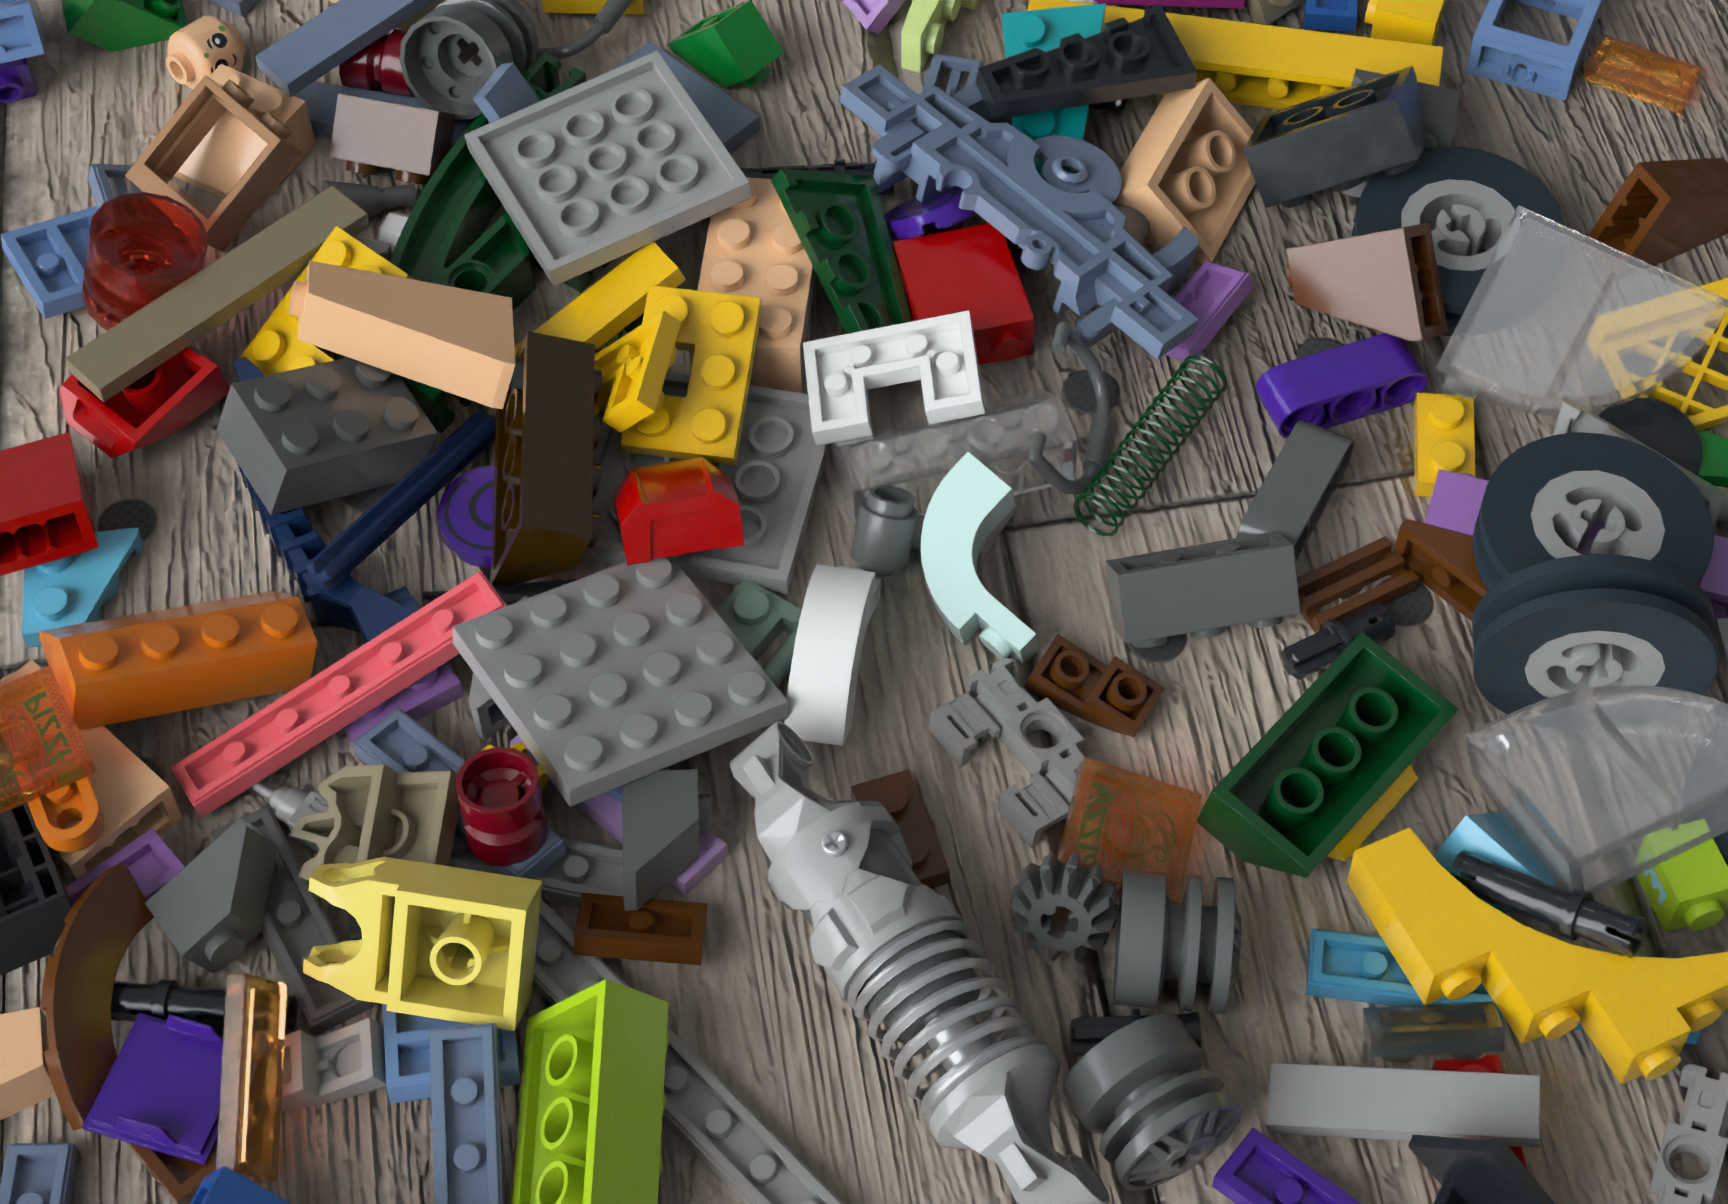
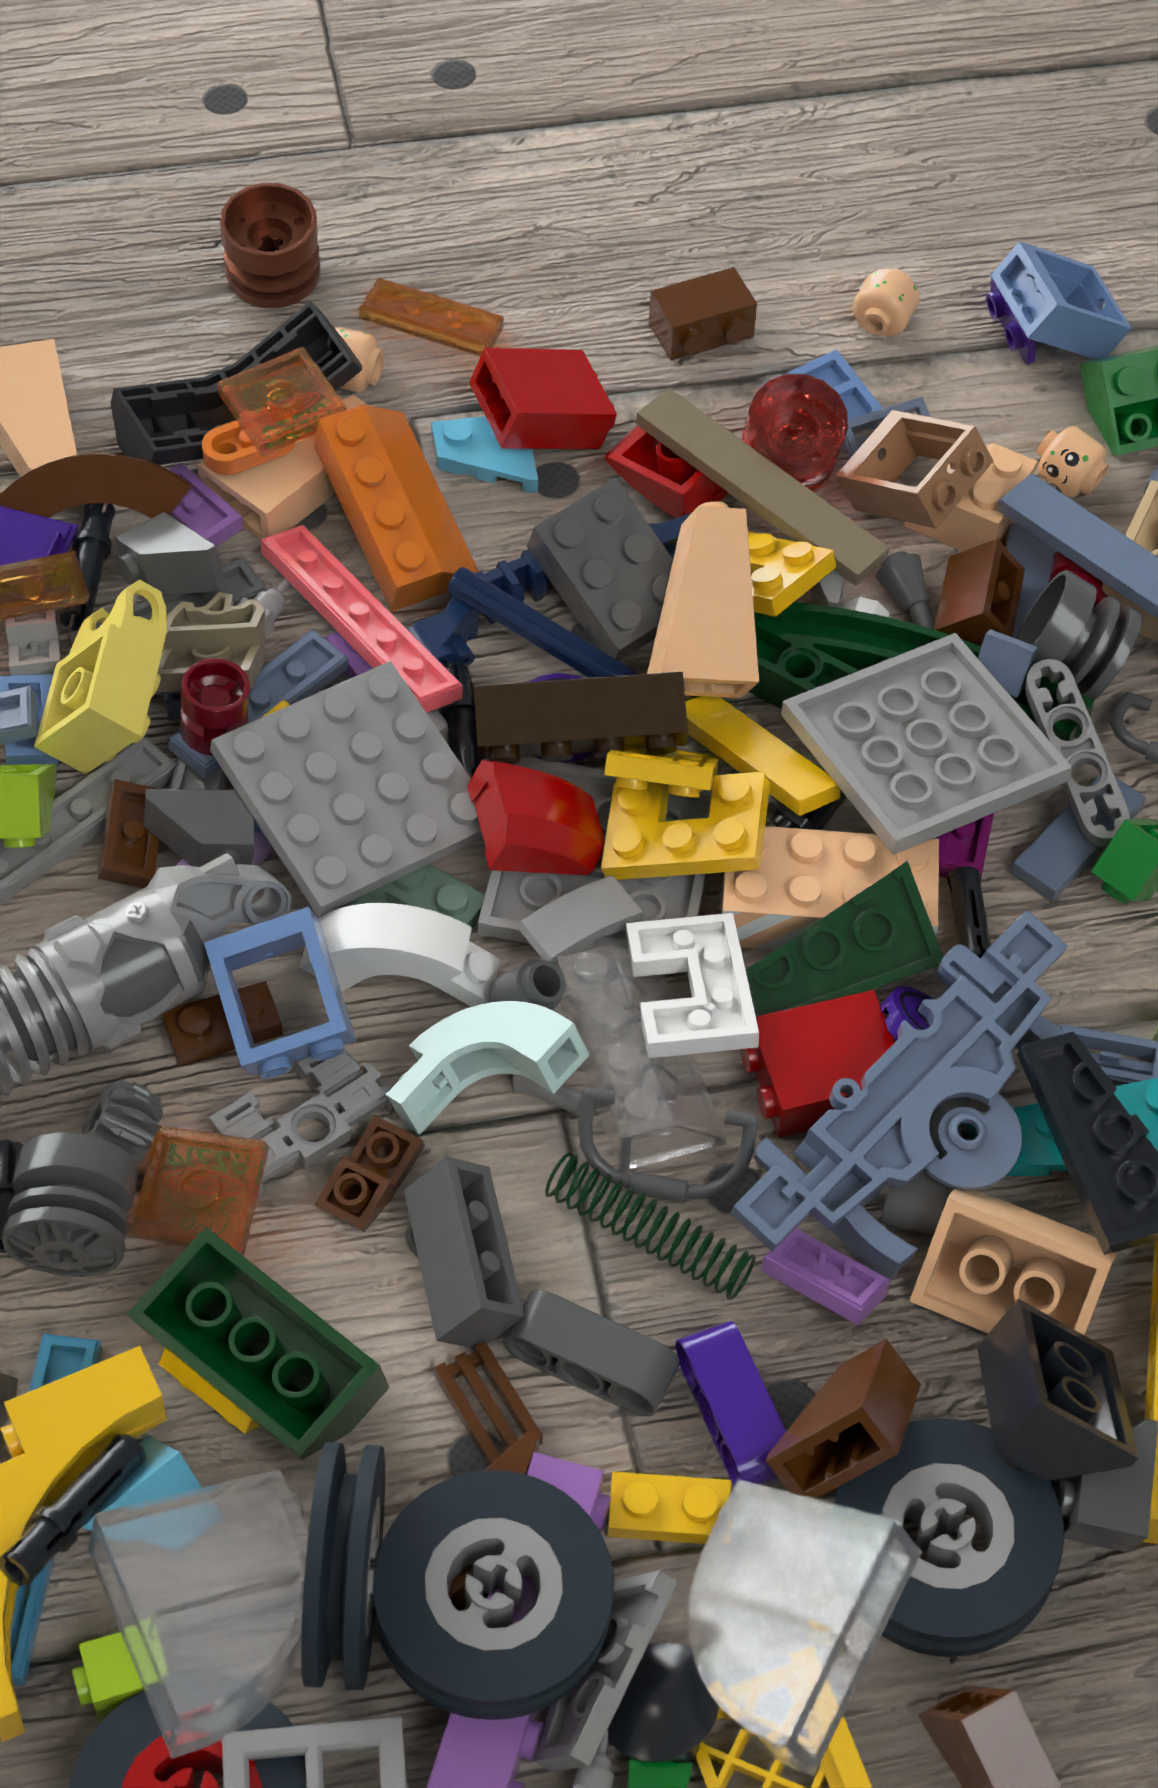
camera: 85 degrees right, 0 degrees up
(609, 56) = (1083, 750): none -> light grey beam
(802, 476) = (580, 918): none -> light grey slope
(850, 749) = (264, 942): none -> medium blue window
(1326, 645) = (412, 1381): black axle -> none

